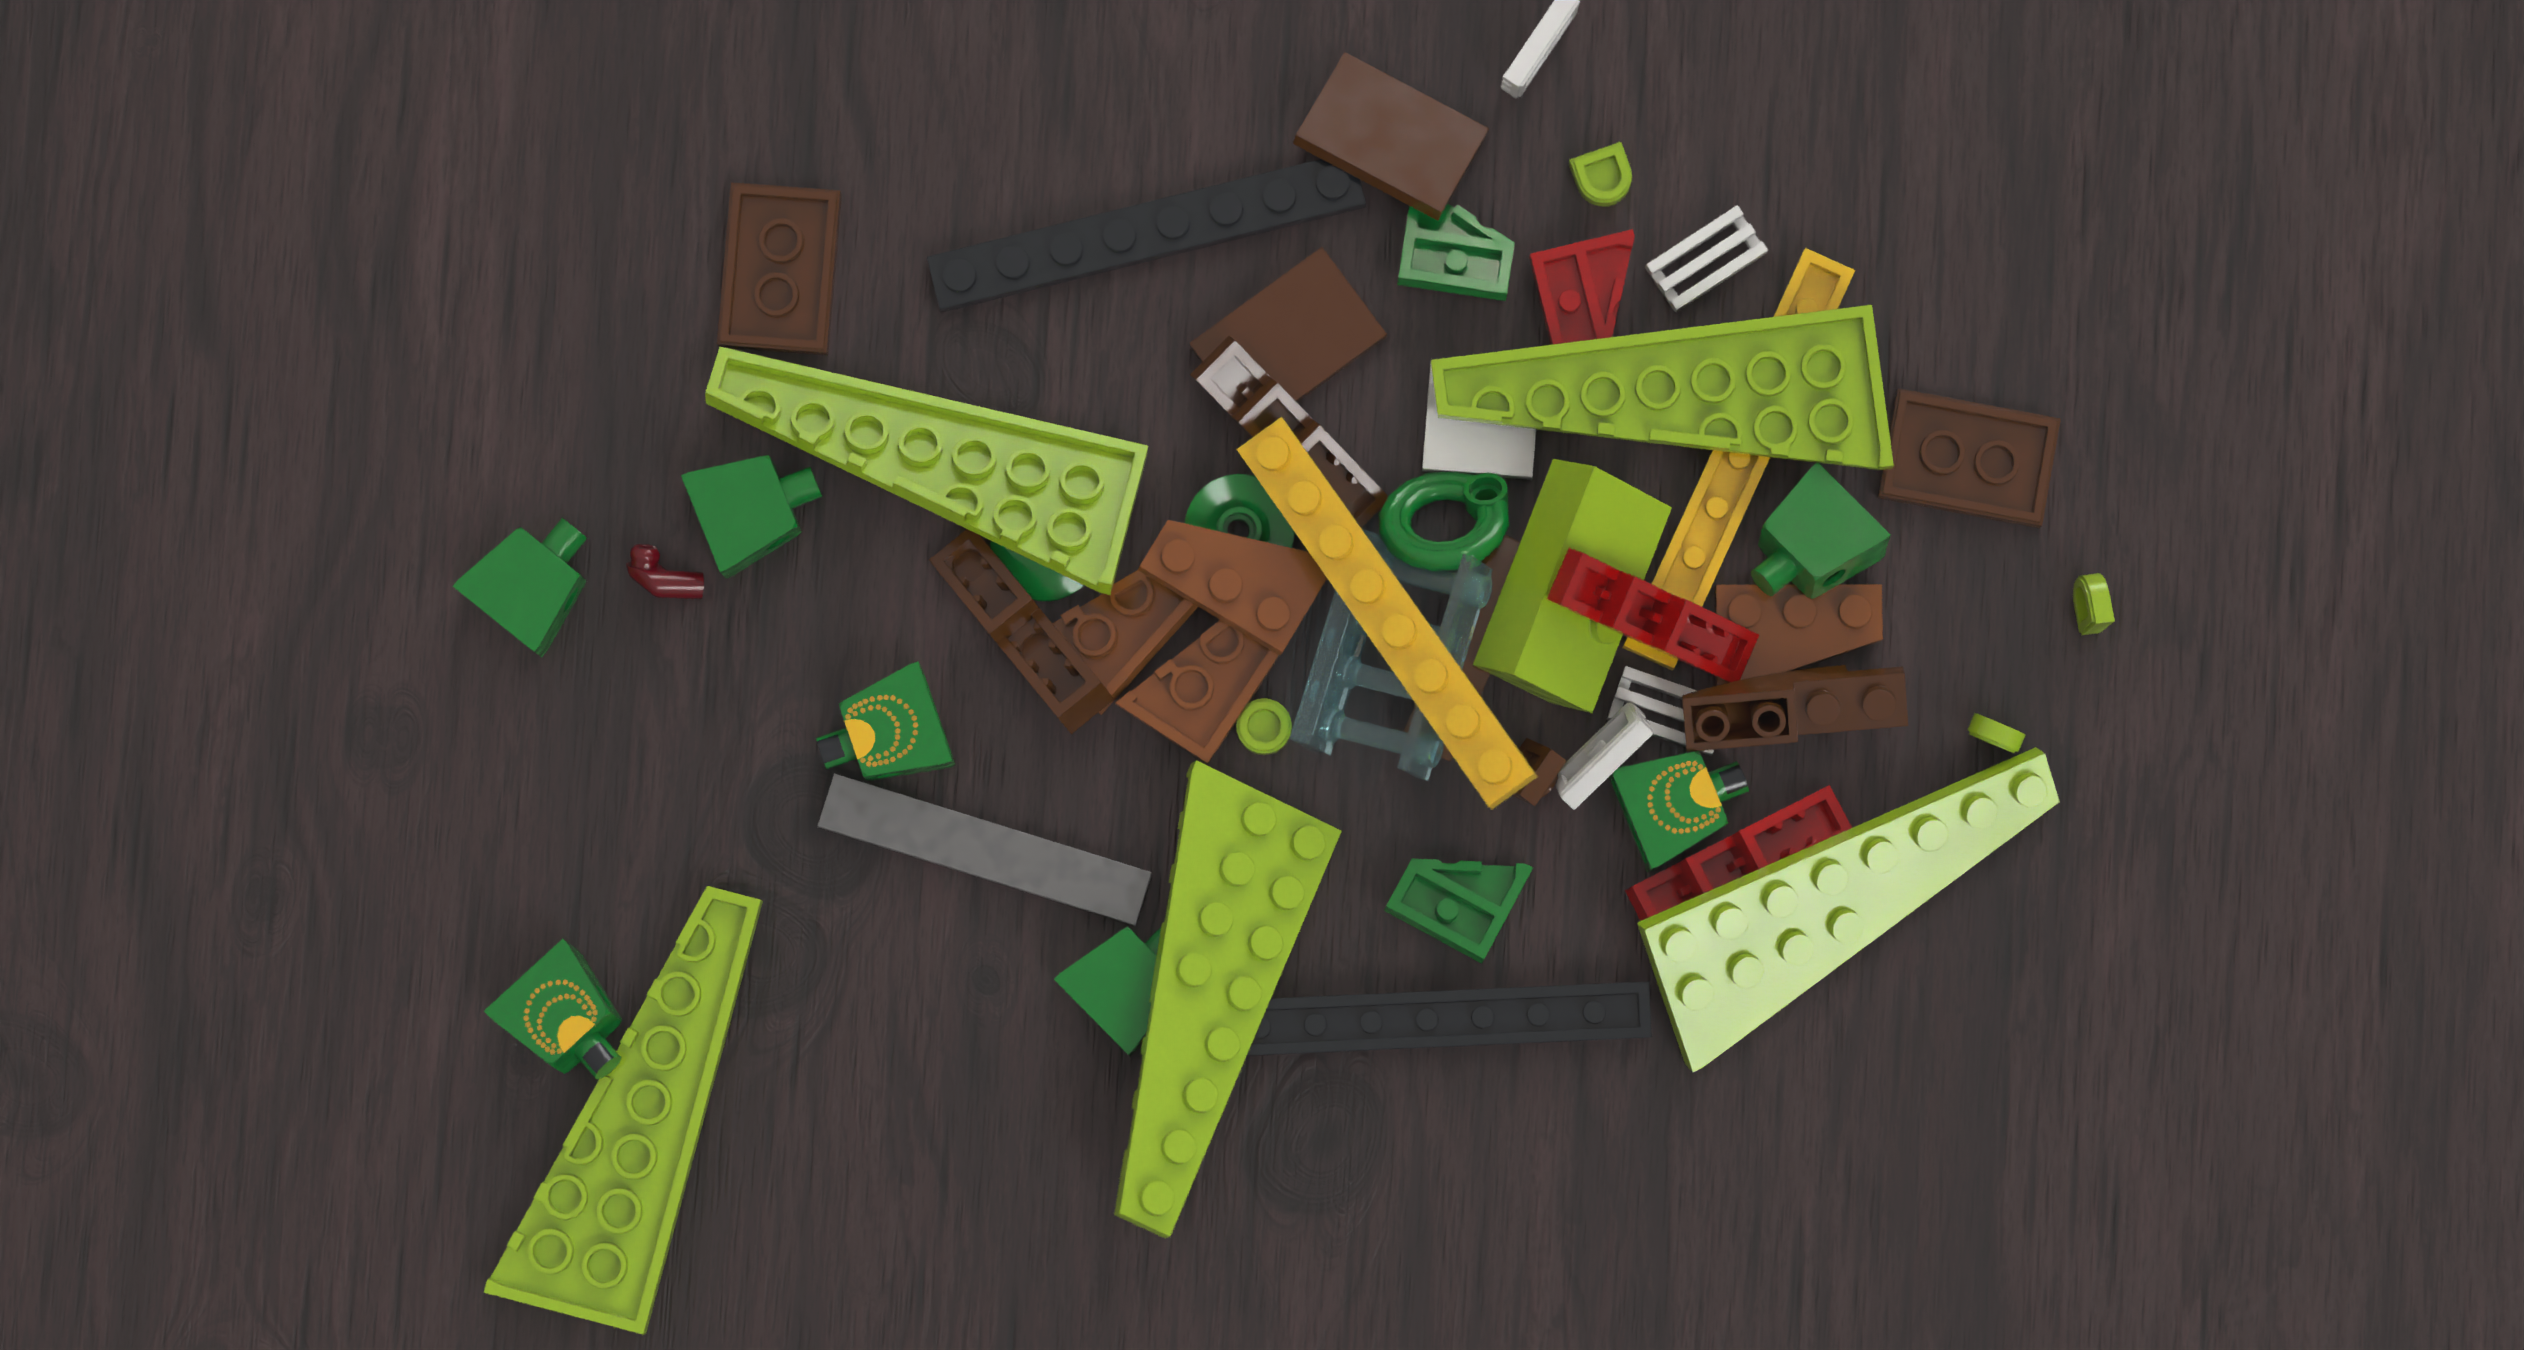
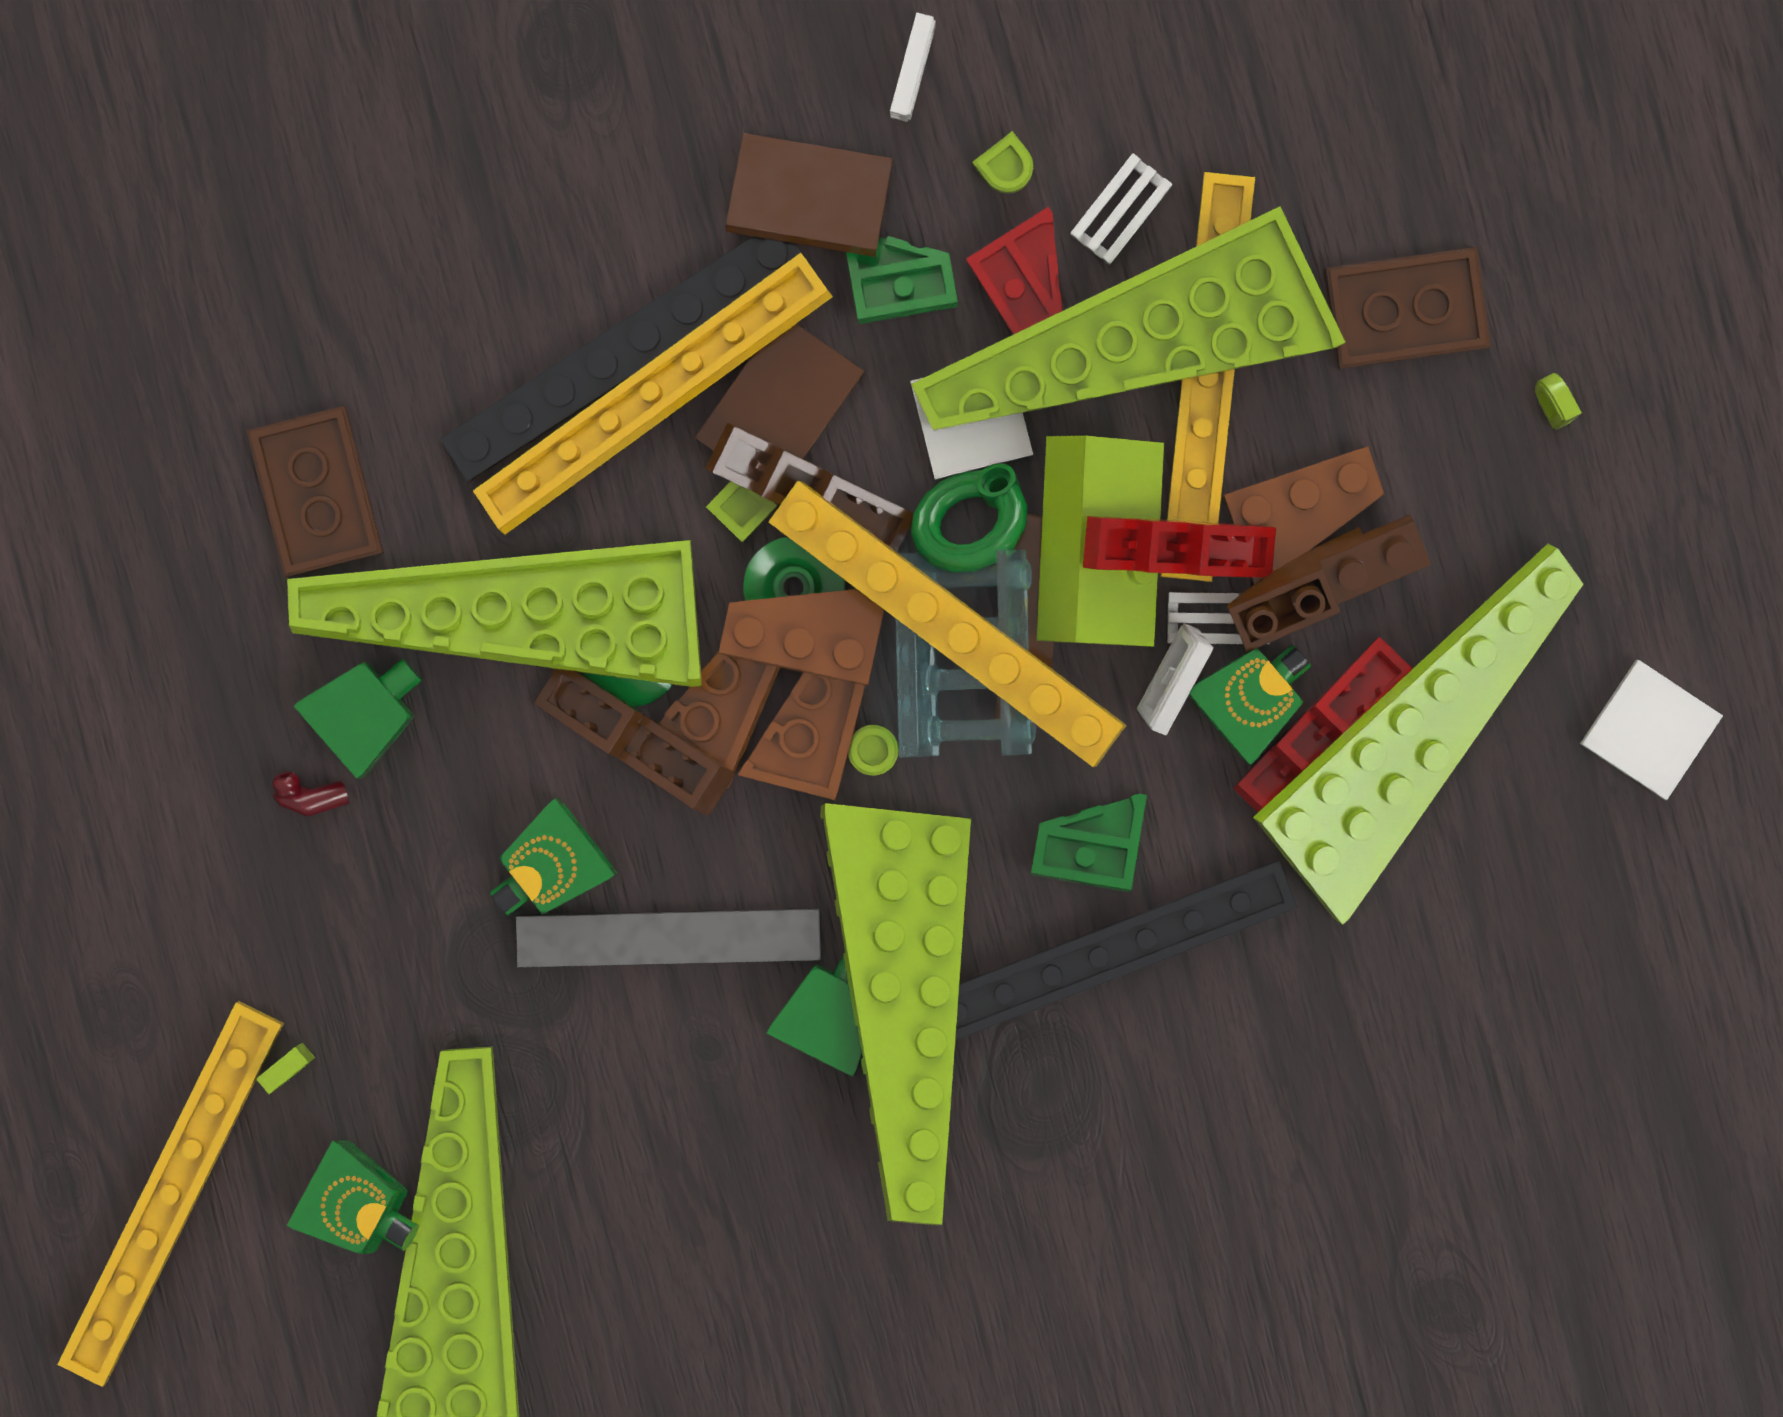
camera: 20 degrees left, 5 degrees up
(373, 941) = (170, 1193): none -> yellow plate
(528, 584) = (194, 843): green torso -> none
(540, 849) = (285, 1068): none -> lime tile
(1161, 283) = (652, 393): none -> yellow plate
(1211, 433) = (740, 509): none -> lime tile
(1545, 764) = (1125, 706): reddish brown plate -> none
(1817, 538) = (1299, 426): green torso -> none
(1995, 733) = (1509, 543): lime tile -> none
(2081, 977) = (1651, 729): none -> white tile

